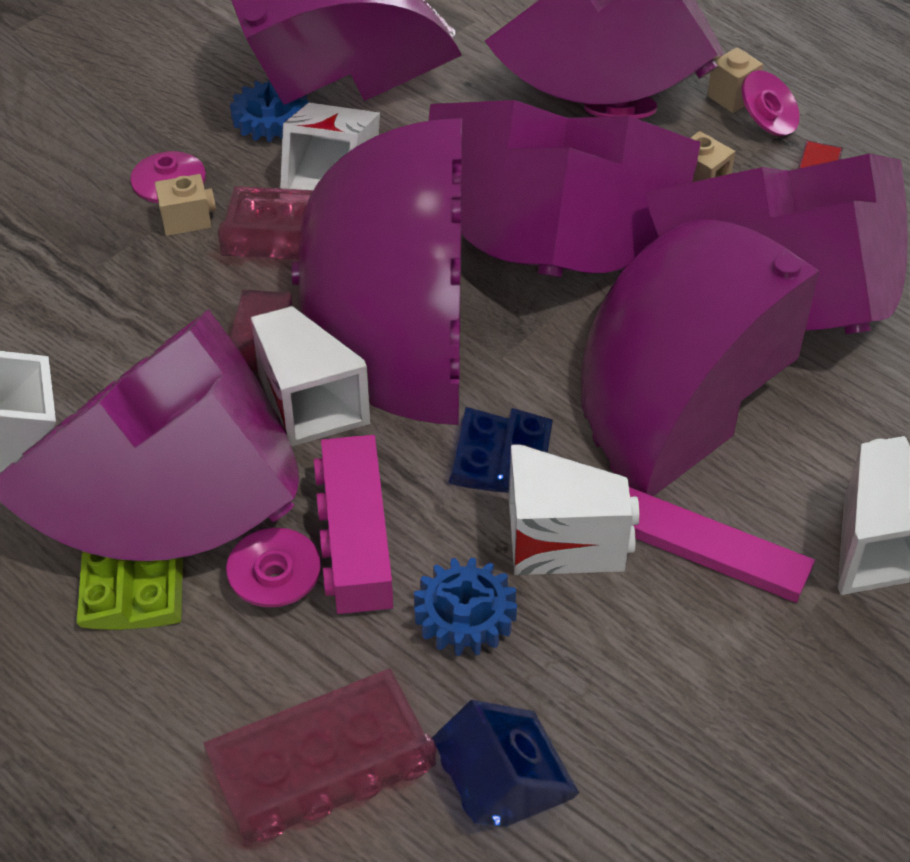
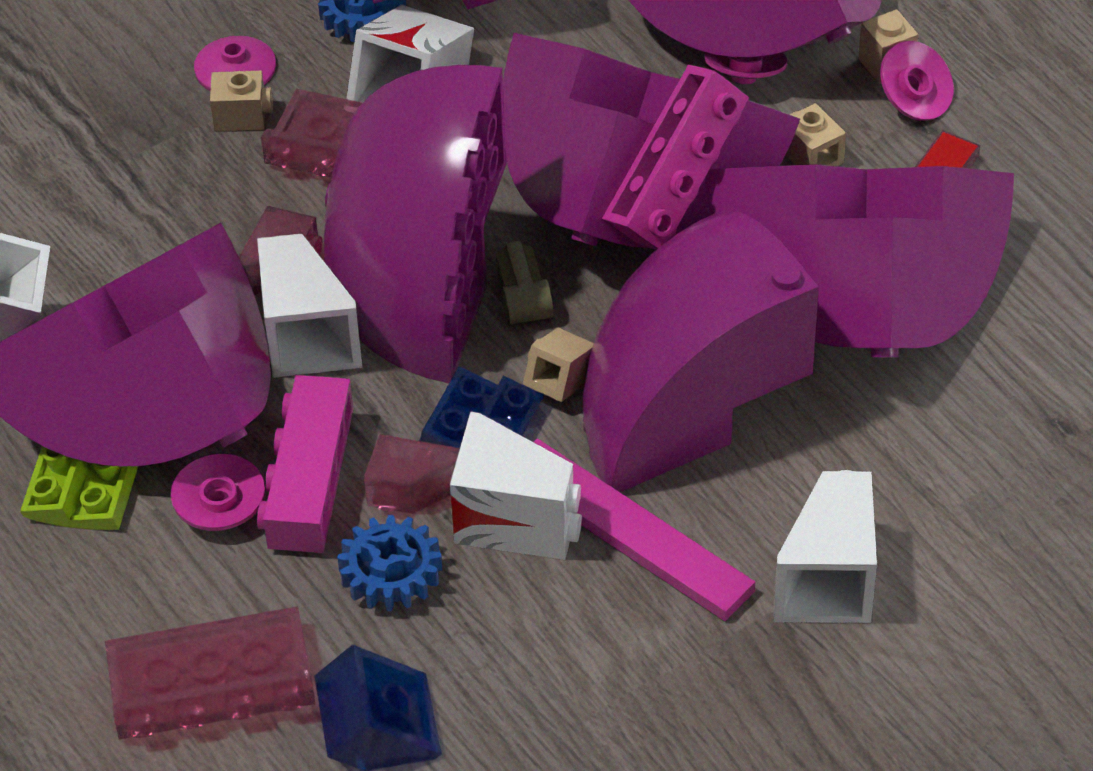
camera: 15 degrees right, 0 degrees up
(459, 514) = (408, 474): none -> clear pink slope
(500, 330) = (523, 291): none -> olive piece
(558, 388) = (558, 364): none -> tan brick
(622, 184) = (676, 157): none -> dark pink brick

